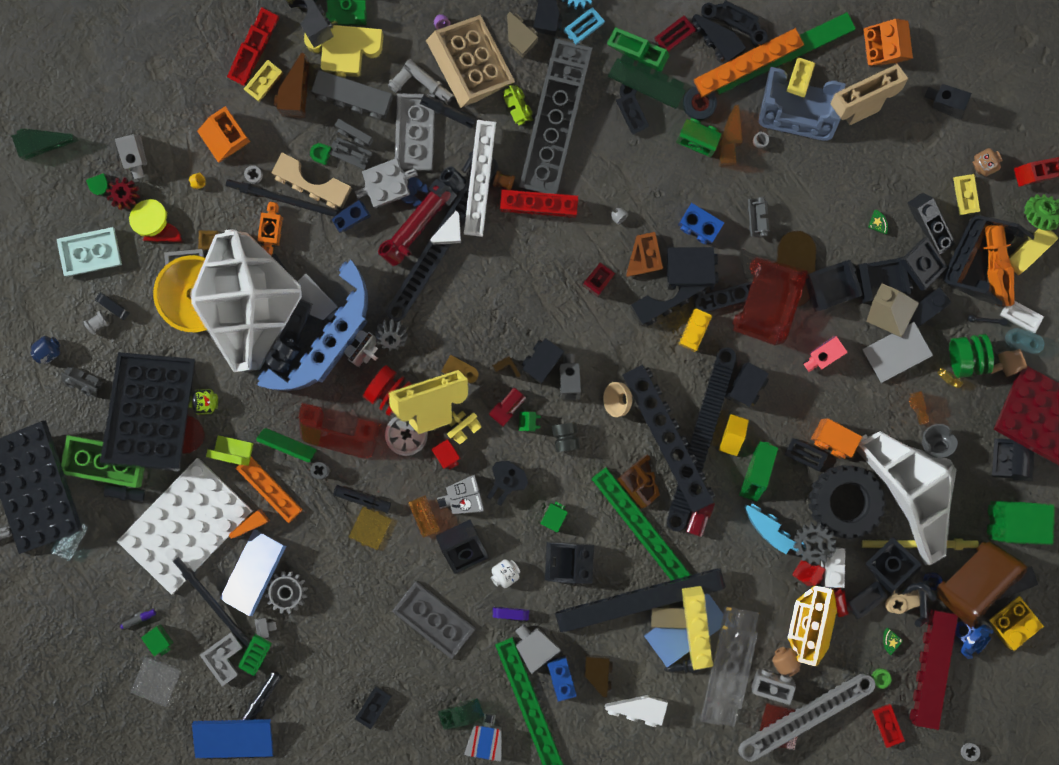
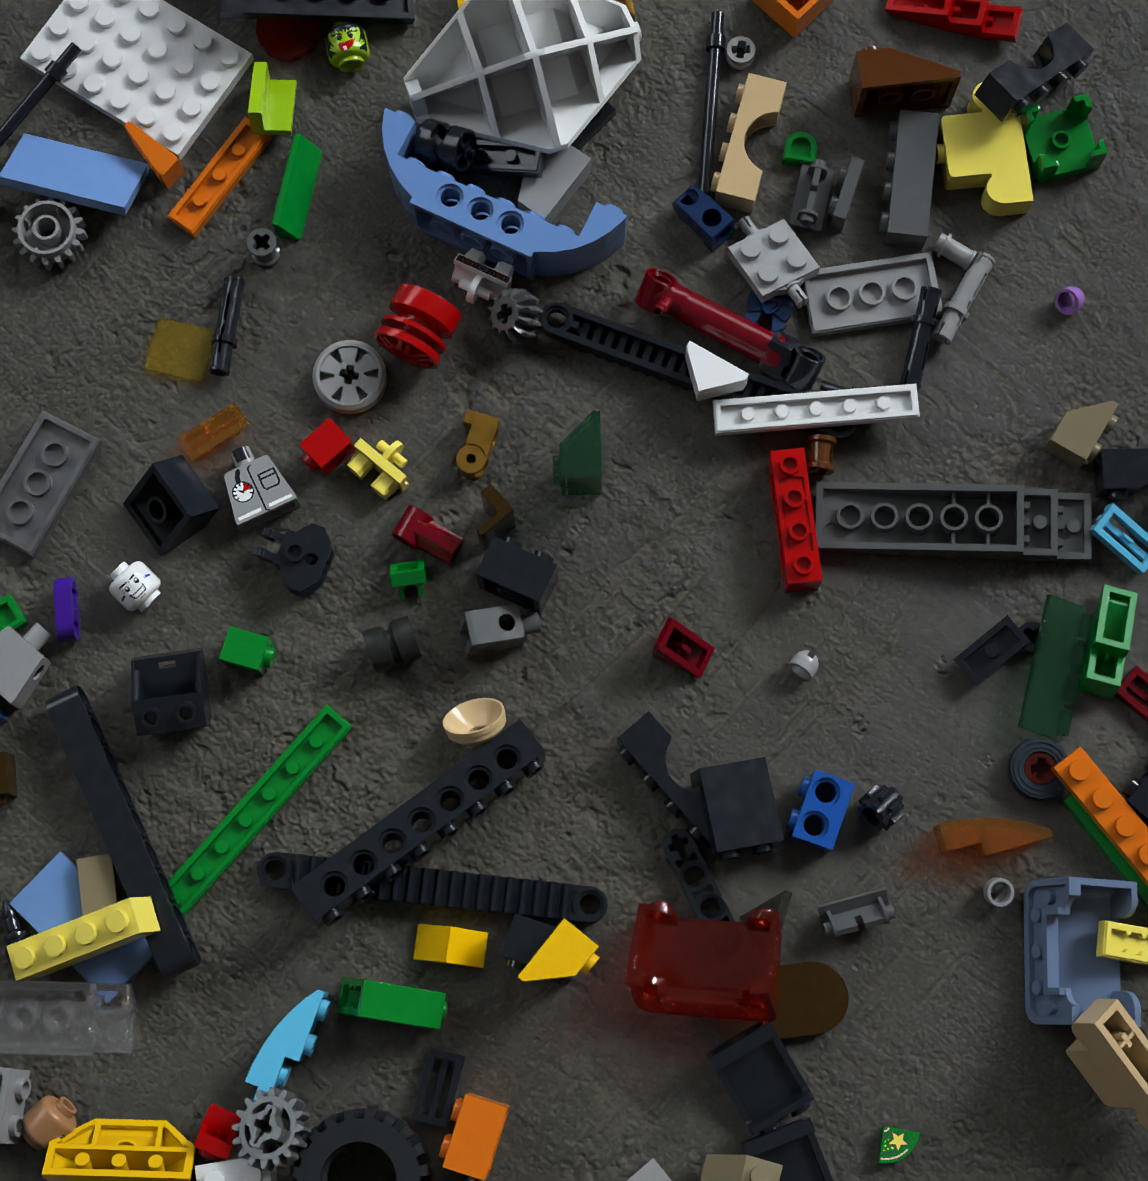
camera: 85 degrees right, 10 degrees down
(263, 81) = (899, 34): light yellow plate -> none
(273, 209) = (658, 81): orange piece -> none
(359, 445) = (341, 213): clear red windscreen -> none
(429, 402) = (409, 392): light yellow brick -> none
(469, 60) = (1017, 358): tan slope -> none
(484, 313) = (579, 463): none -> clear green slope
(522, 111) = (971, 446): lime hinge -> none
(640, 482) = (335, 793): reddish brown slope -> none
(645, 255) = (742, 723): dark orange wing -> none
(695, 330) = (626, 836): yellow brick -> none
(698, 137) = (977, 776): green slope -> none
(699, 519) = (282, 910): dark red piece -> none
(705, 191) = (881, 807): none -> black gear
(758, 375) = (561, 955): none -> yellow slope
(833, 349) = (640, 1097): coral torso -> none

